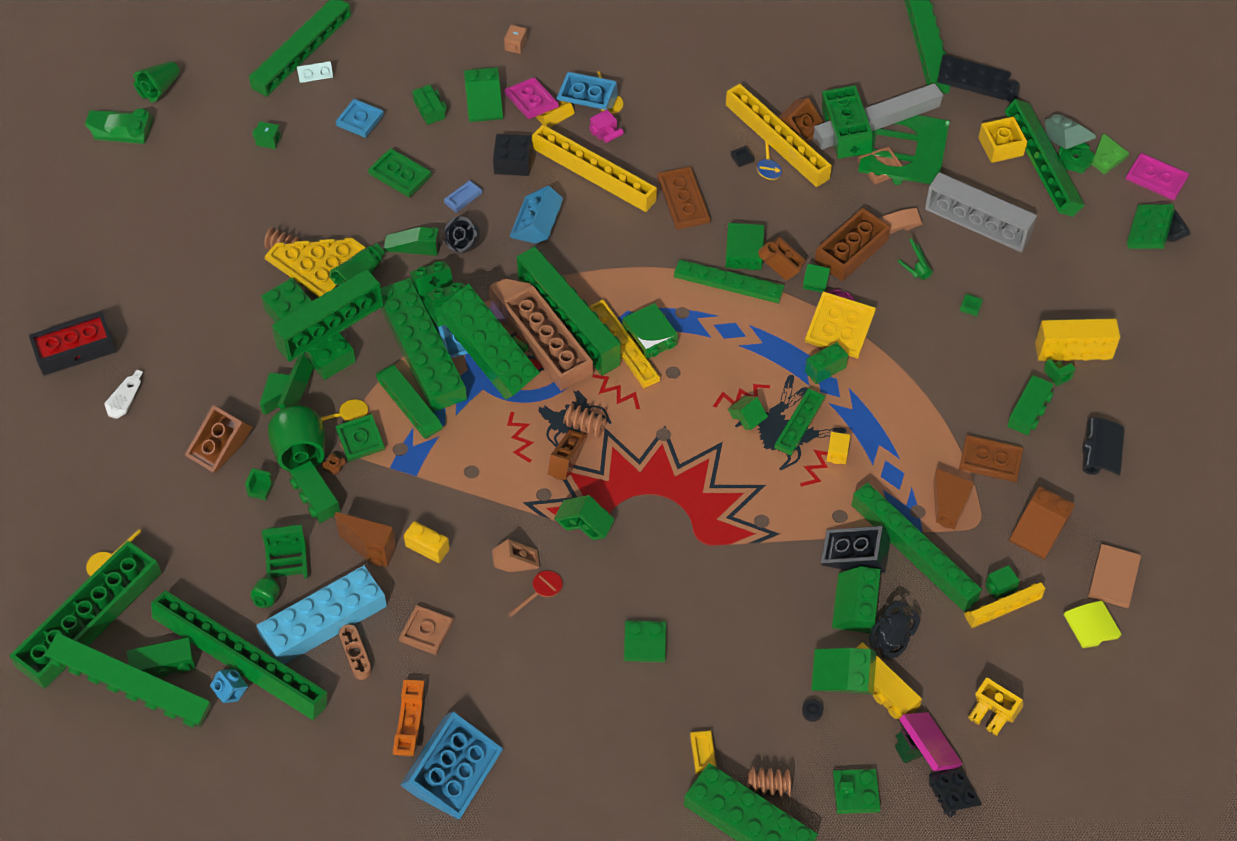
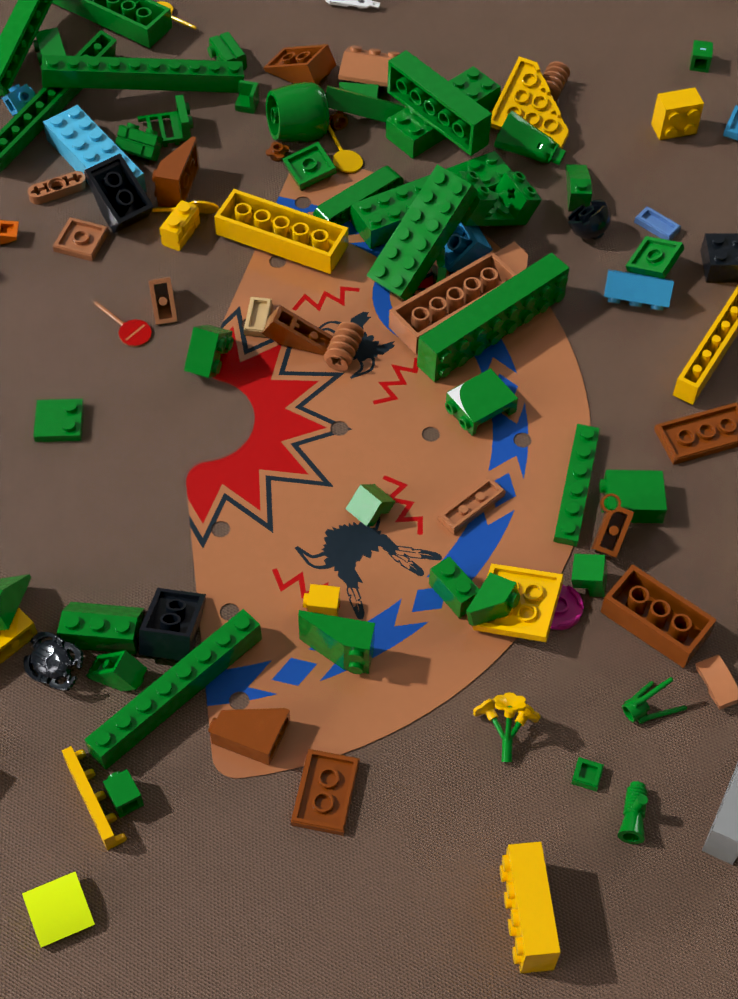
camera: 85 degrees right, 0 degrees up
(190, 500) = (226, 49): none -> green brick
(225, 567) = (141, 73): none -> green brick
(243, 377) = (365, 65): none -> nougat slope
(265, 592) = (121, 113): green head -> none
(312, 574) = (138, 142): none -> green brick
(314, 492) = (240, 138): green brick -> none
(347, 159) = (677, 113): none -> yellow brick
(394, 583) = (118, 193): none -> black slope
(399, 172) = (676, 165): green plate -> none
(405, 525) = (204, 207): none -> yellow piece
(448, 459) = (281, 231): none -> yellow brick
(508, 199) = (655, 257): none -> green hinge
(539, 486) = (257, 316): none -> tan tile
(629, 350) = (435, 396): yellow tile -> none
(746, 350) = (471, 505): none -> nougat tile
(799, 422) = (362, 561): green plate -> none
(845, 333) = (493, 600): none -> green slope
(882, 428) = (339, 639): none -> green slope
(899, 586) = (117, 671): none -> green slope
(938, 329) = (510, 704): none -> yellow plant
(1000, 281) = (632, 826): none -> green piece
(1031, 405) = (413, 843): green brick -> none
(1042, 522) = (218, 850): dark orange slope -> none
(1058, 373) = (480, 887): green panel -> none
(1103, 446) = (348, 942): black panel -> none
(1114, 576) = (137, 947): nougat tile -> none

